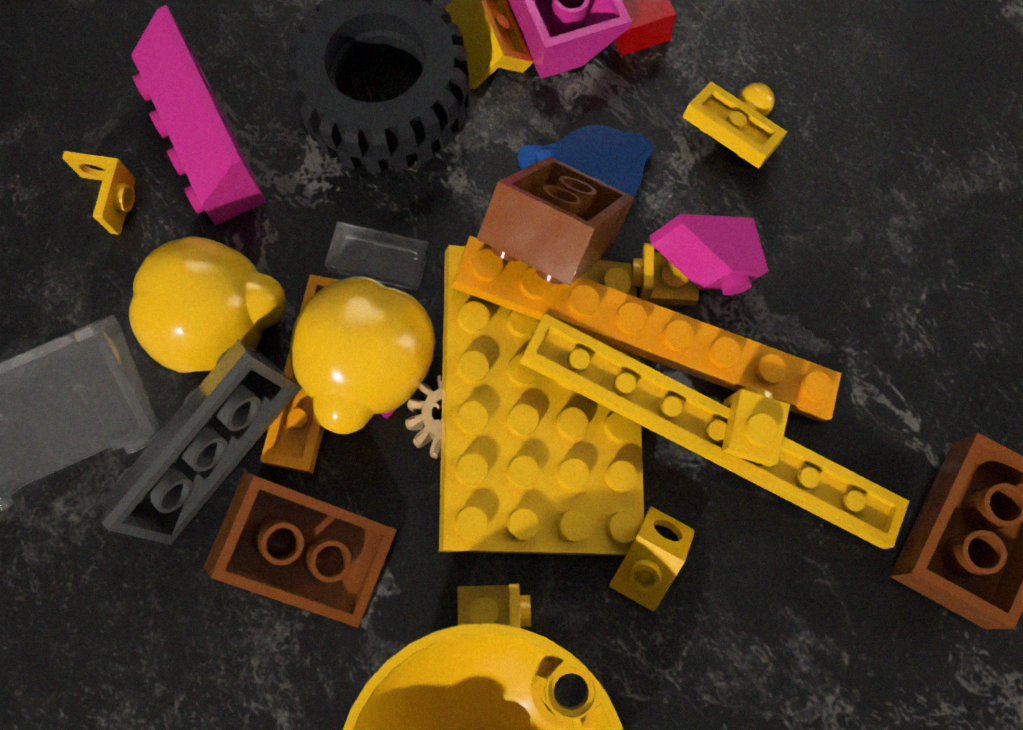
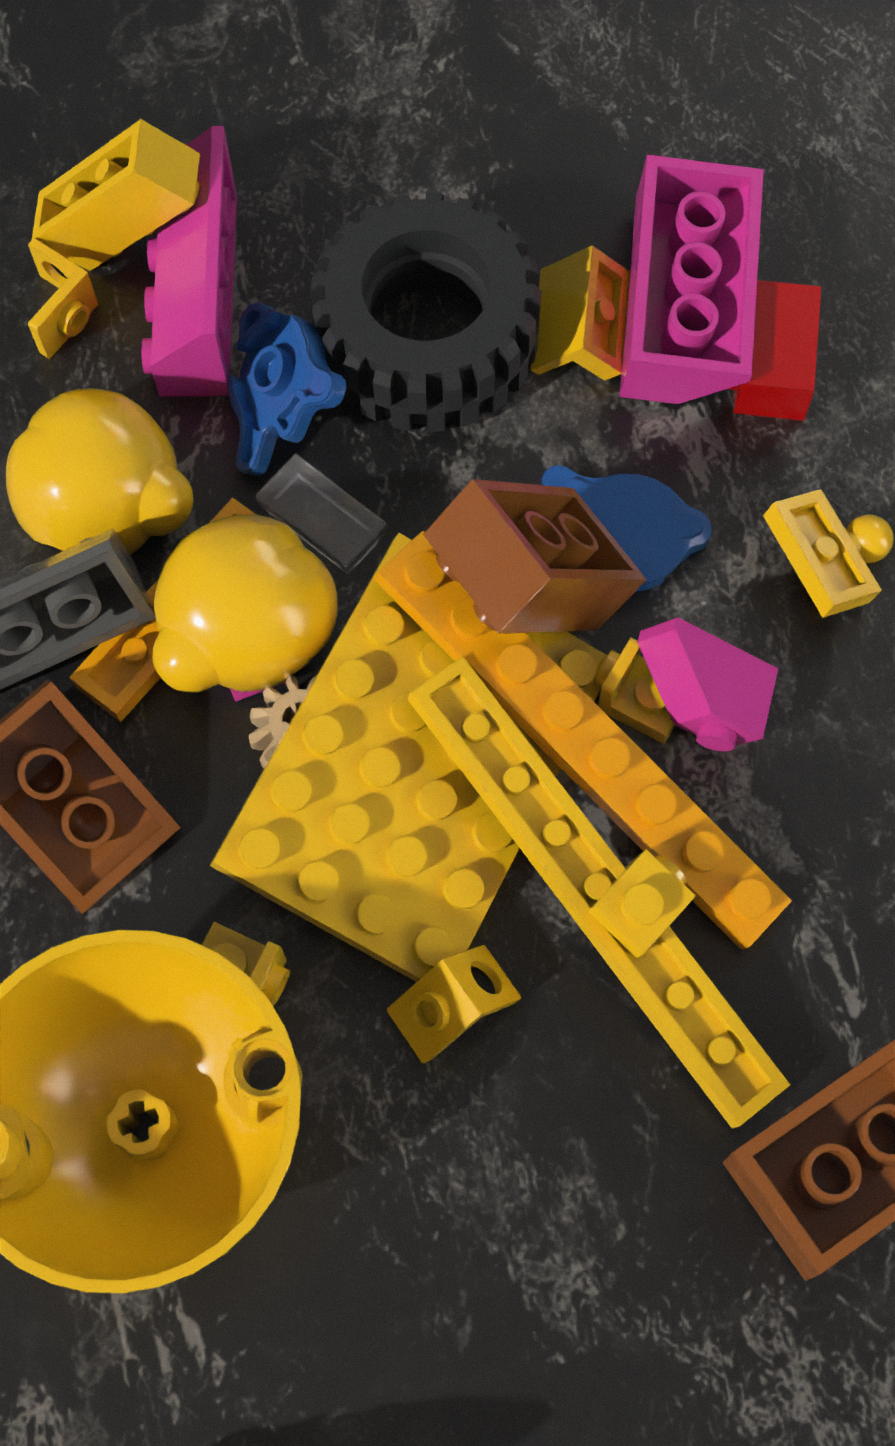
camera: 25 degrees right, 5 degrees down
(112, 90) = (117, 195): none -> yellow brick
(301, 176) = (278, 384): none -> blue tile

